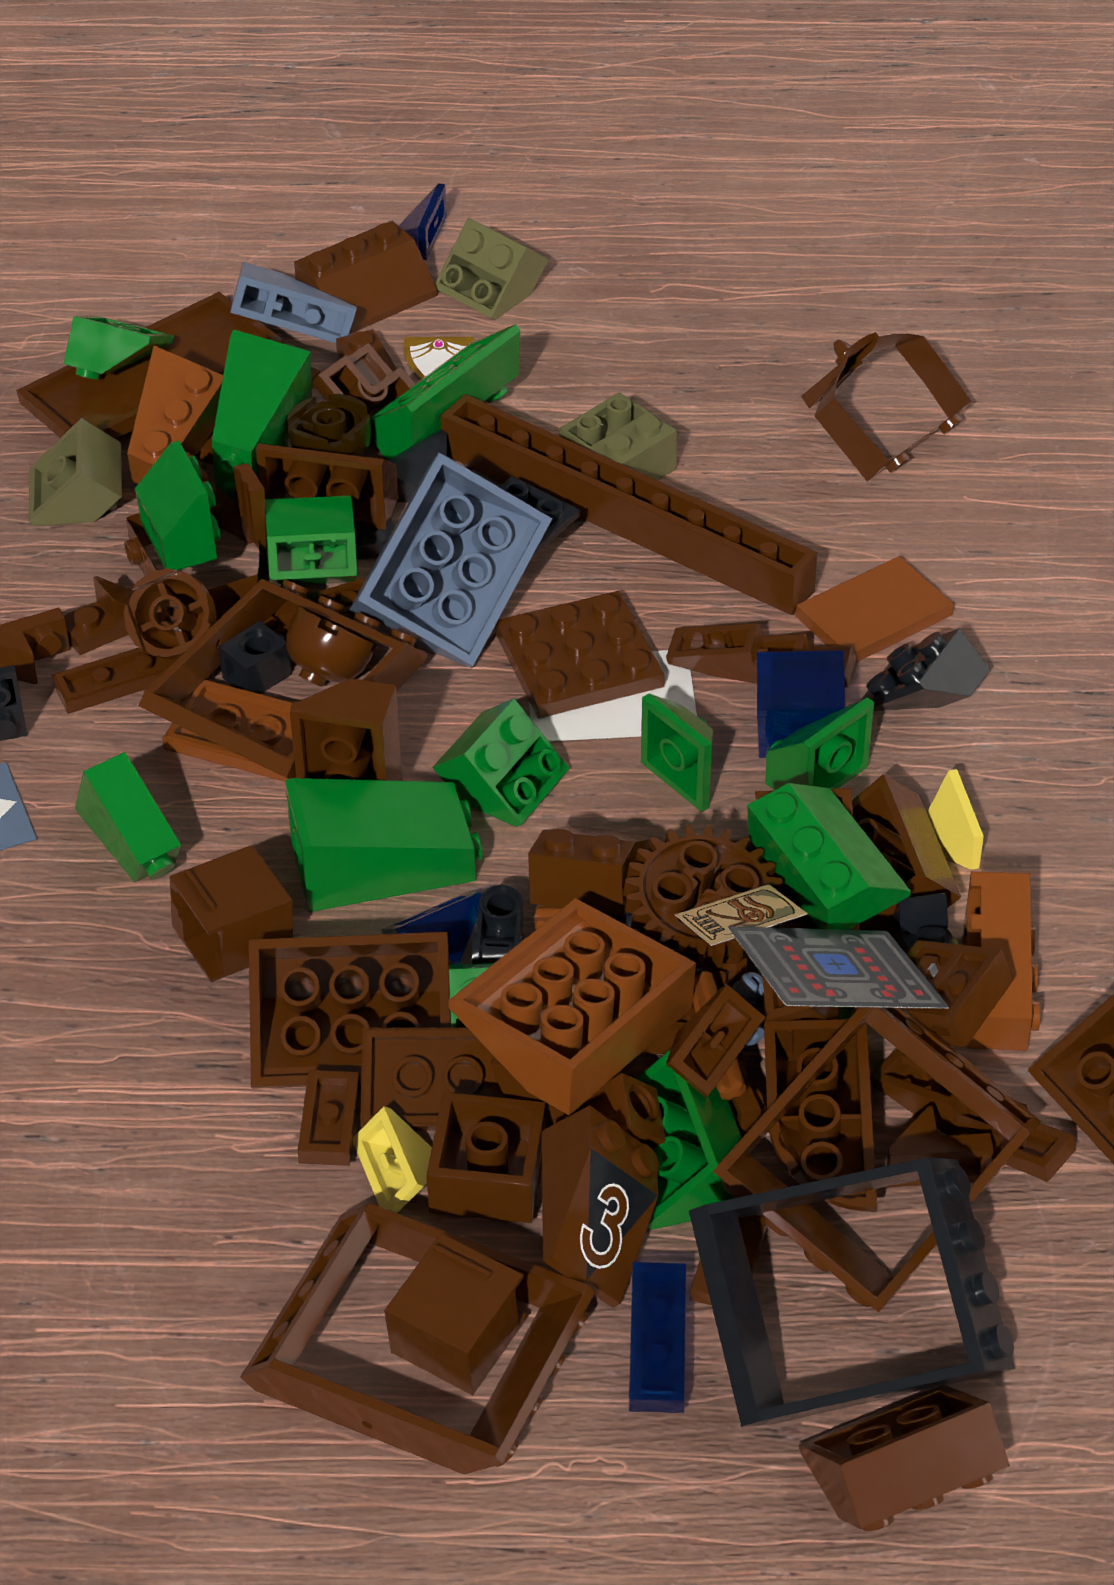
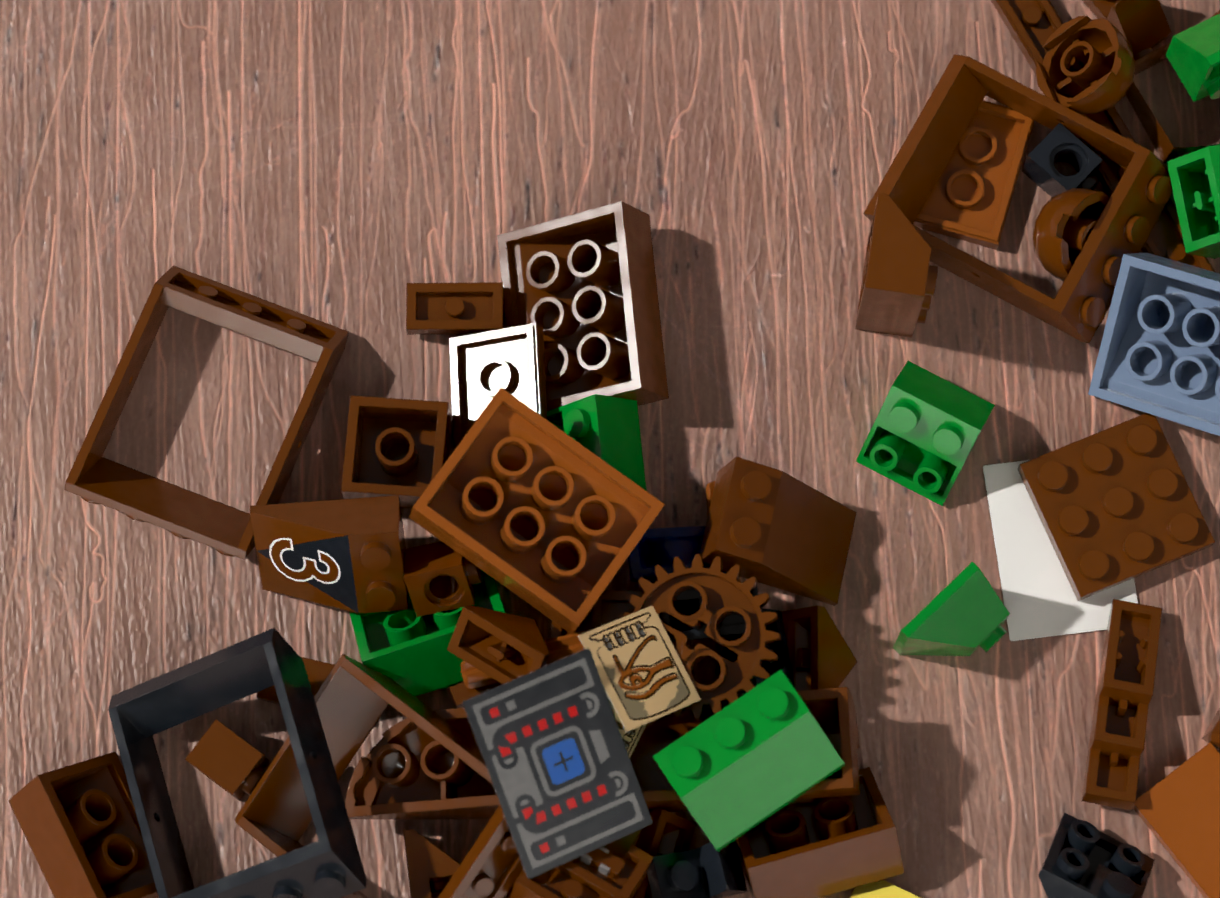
camera: 90 degrees right, 30 degrees up
(127, 819) = (809, 71): green slope -> none
(225, 906) = (688, 185): reddish brown piece -> none
(378, 839) = (800, 316): green slope -> none
(392, 1159) = (409, 373): light yellow slope -> none
(452, 916) = (703, 386): clear blue slope -> none
(455, 1314) = (220, 438): reddish brown piece -> none
(497, 924) = (682, 447): black piece -> none
(657, 1337) = (212, 620): clear blue plate -> none
(796, 691) = (1030, 744): clear blue piece -> none
(812, 1324) = (228, 760): none -> reddish brown brick
(824, 751) = (953, 762): green slope -> none

